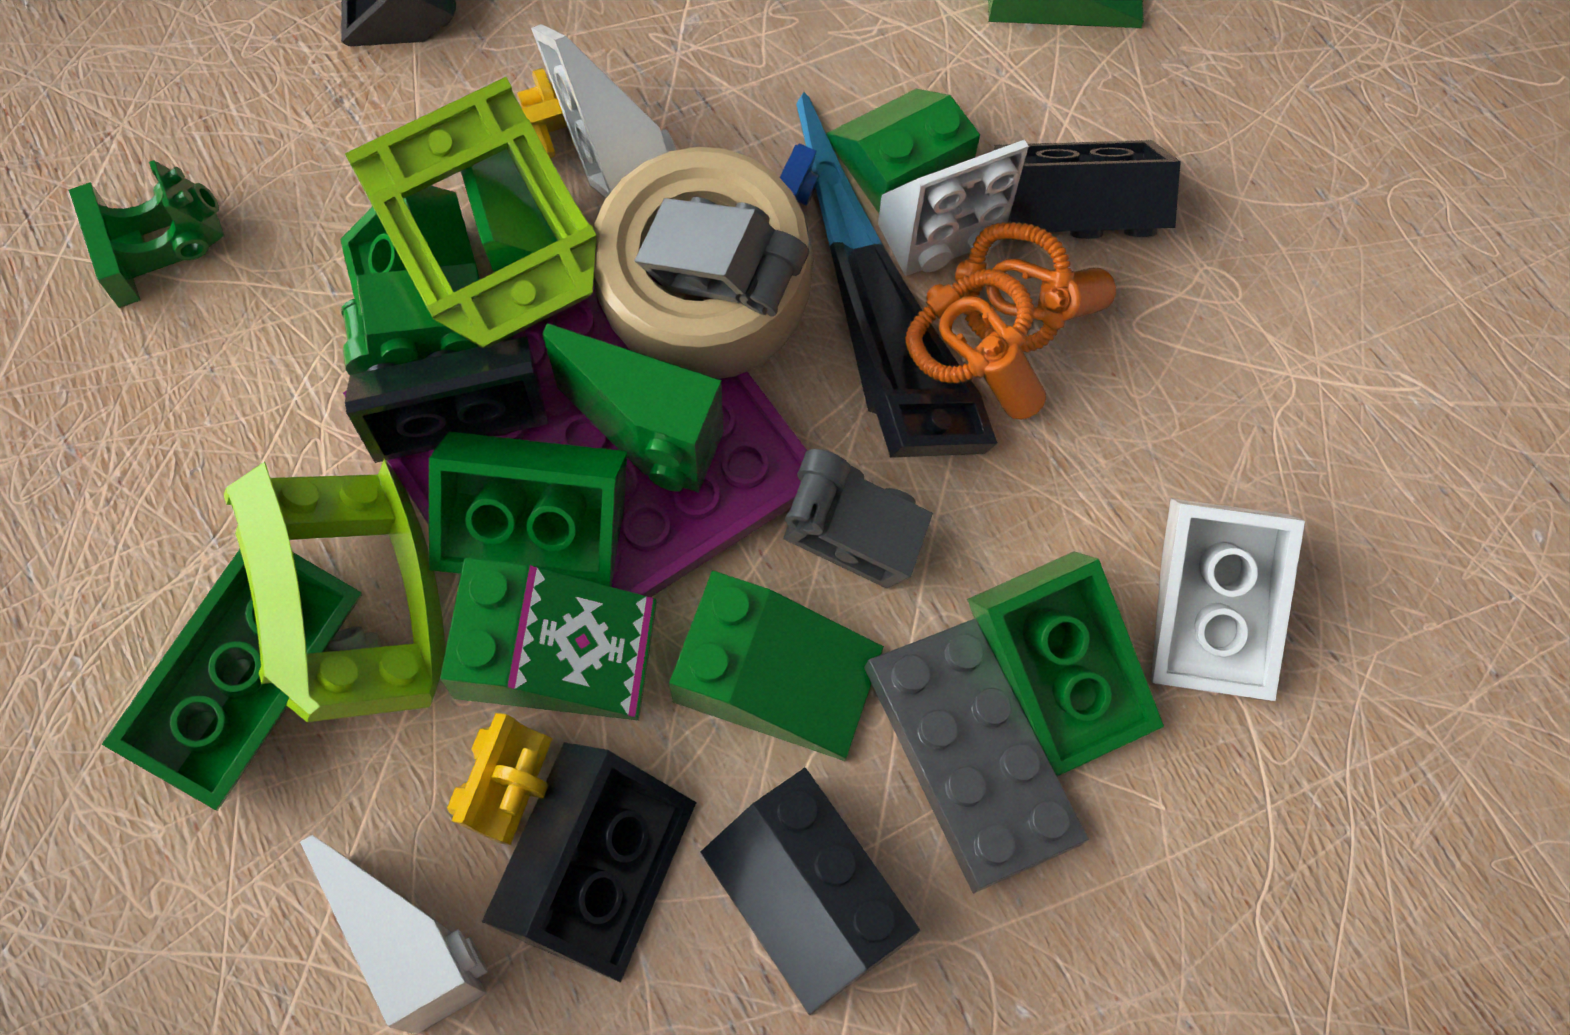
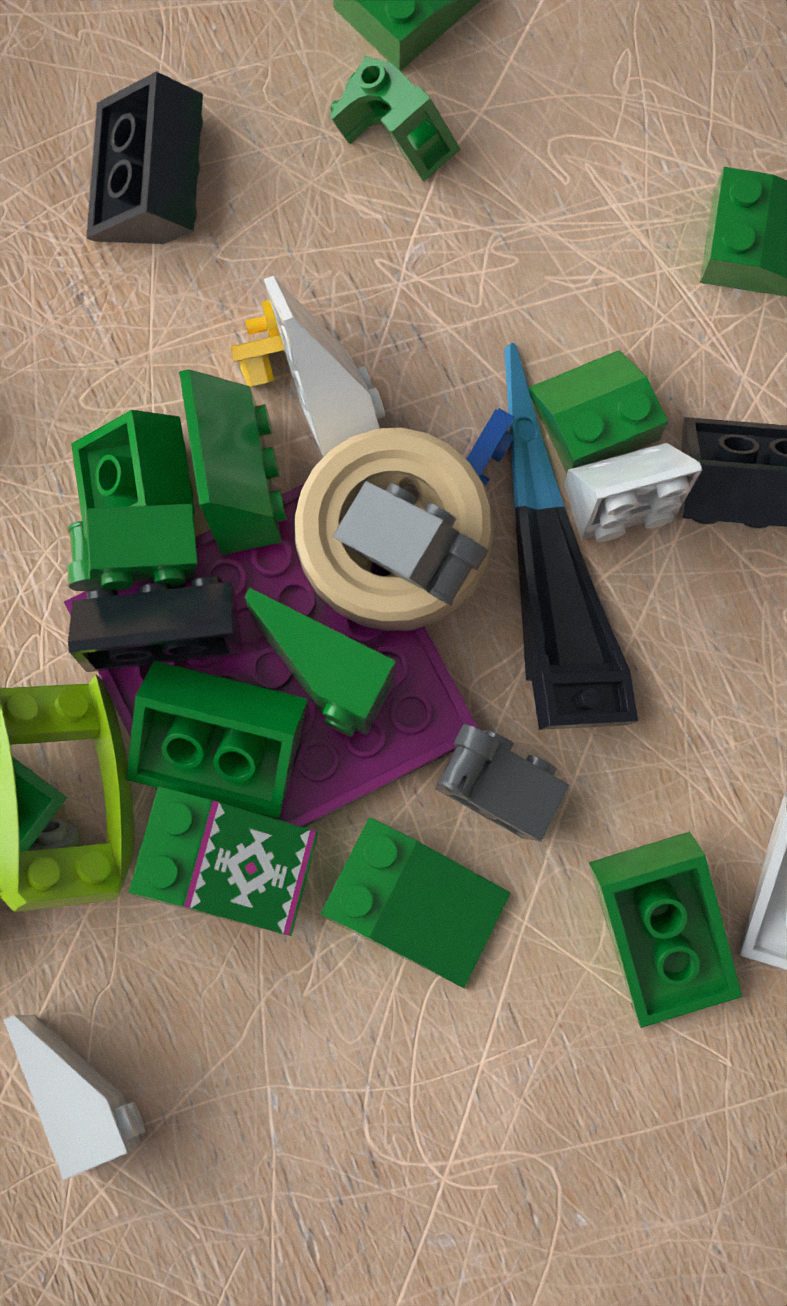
camera: 10 degrees right, 10 degrees up
(444, 145) = (171, 401): lime wedge -> none
(501, 779) = (171, 972): yellow hips -> none
(591, 860) = (238, 1051): black slope -> none
(809, 890) = (416, 1102): black slope -> none
(975, 755) = (574, 1000): flat silver plate -> none
(997, 356) = (647, 649): orange piece -> none
(1062, 294) = (718, 591): orange piece -> none

